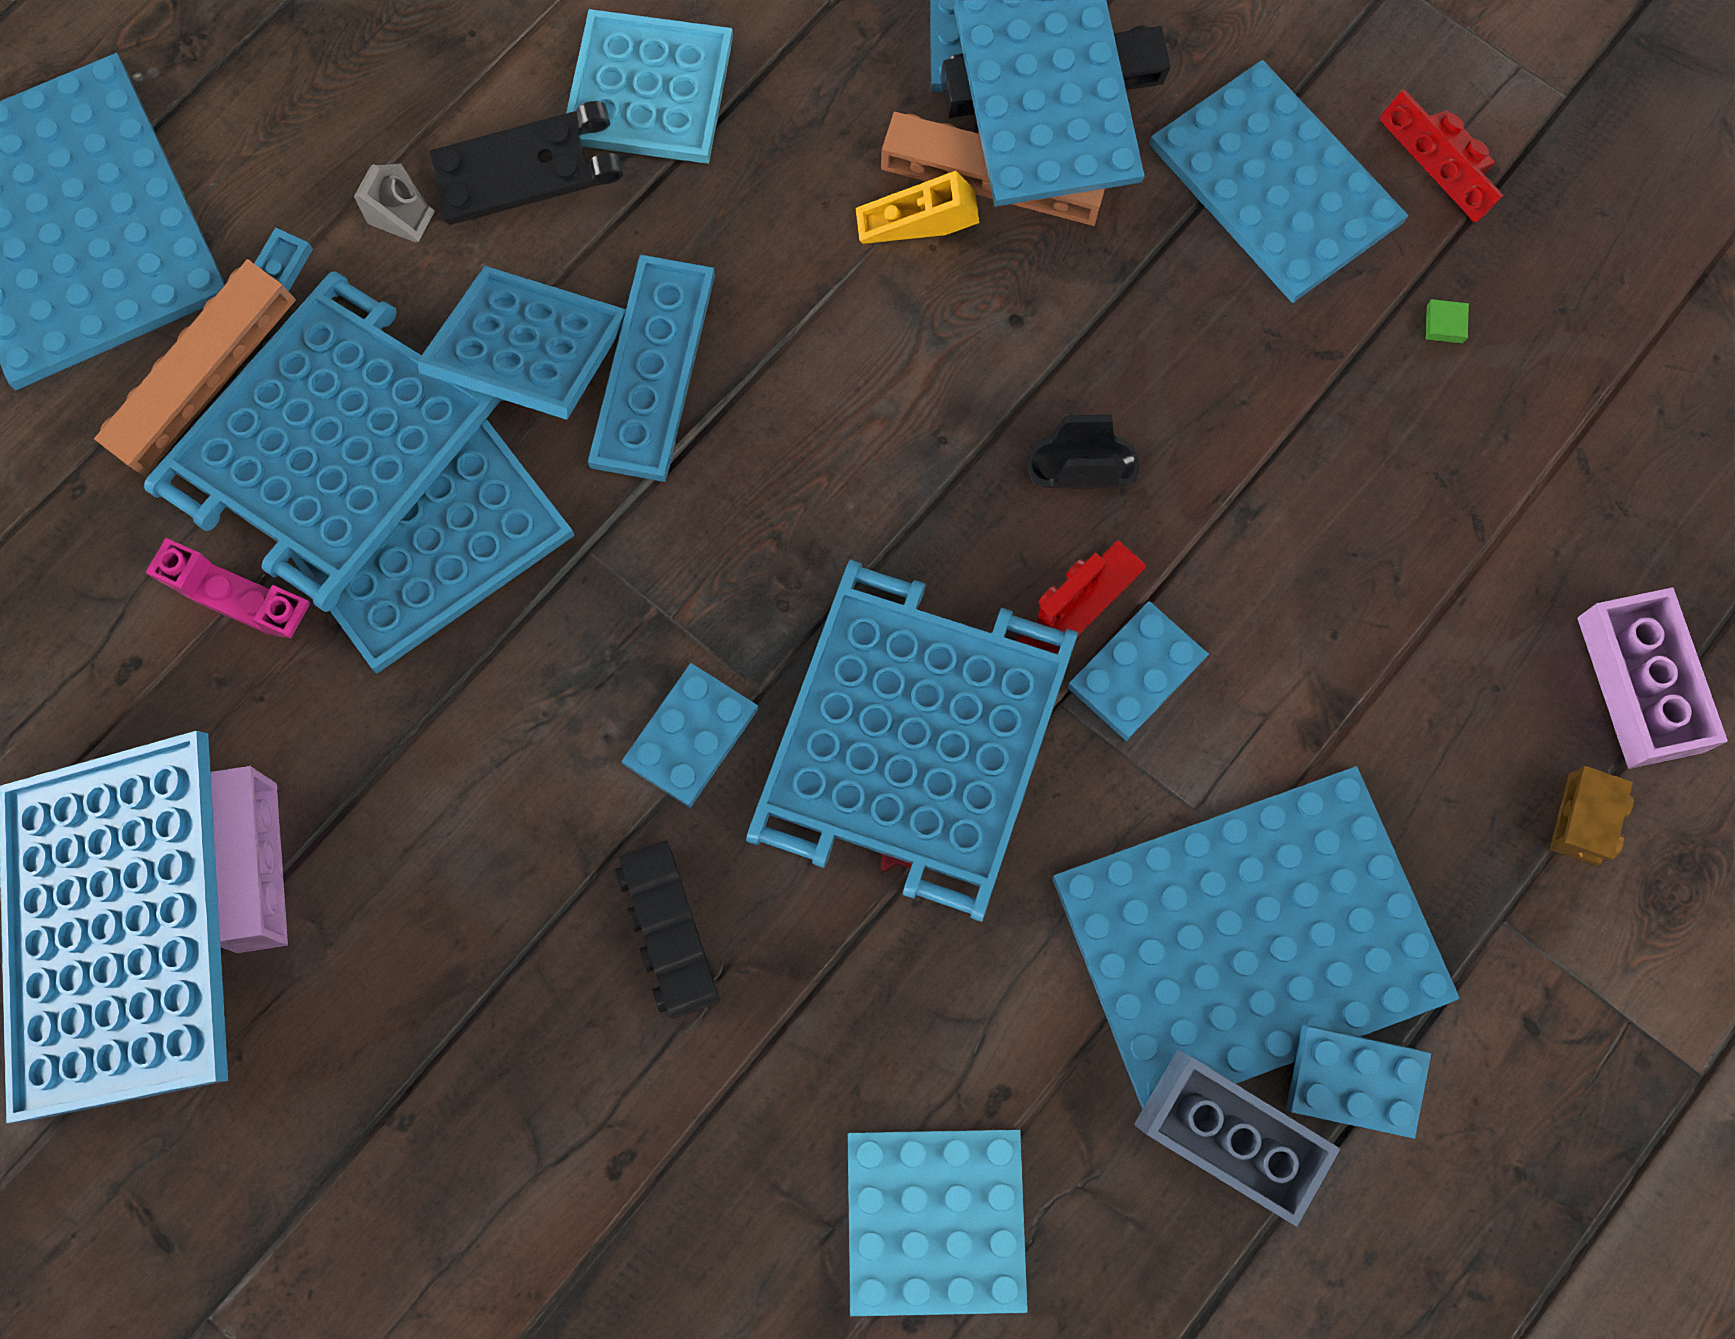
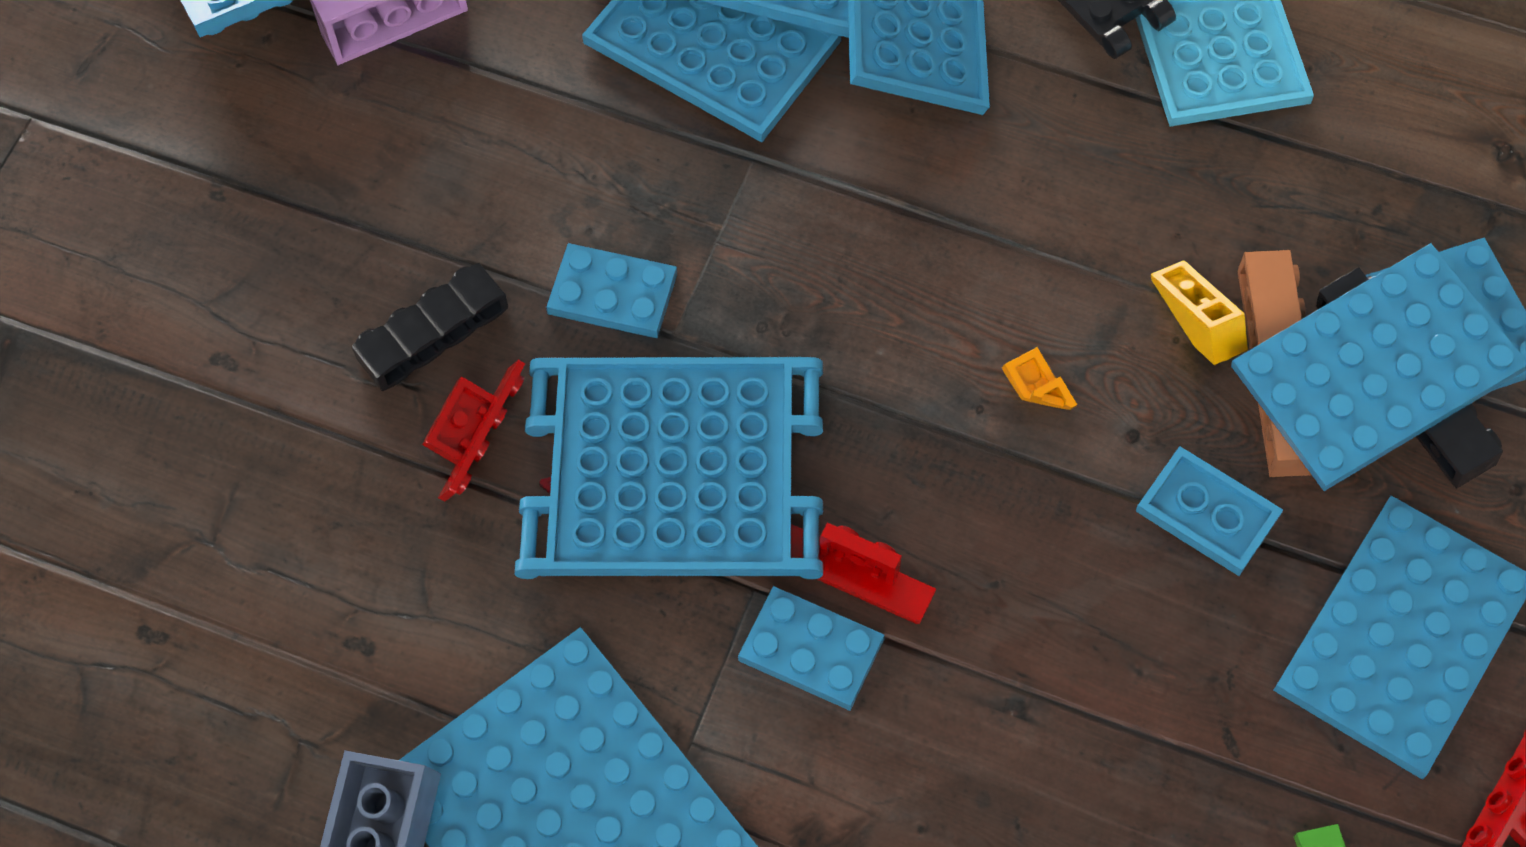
camera: 75 degrees right, 10 degrees down
(652, 368) = (944, 146): dark azure plate -> none
(798, 921) = (465, 422): none -> red bracket
(935, 380) = (1036, 382): none -> light orange slope
(936, 1223) = (236, 624): medium azure plate -> none
(1107, 461) = (1000, 507): black piece -> none
(1117, 284) = (1209, 510): none -> dark azure plate

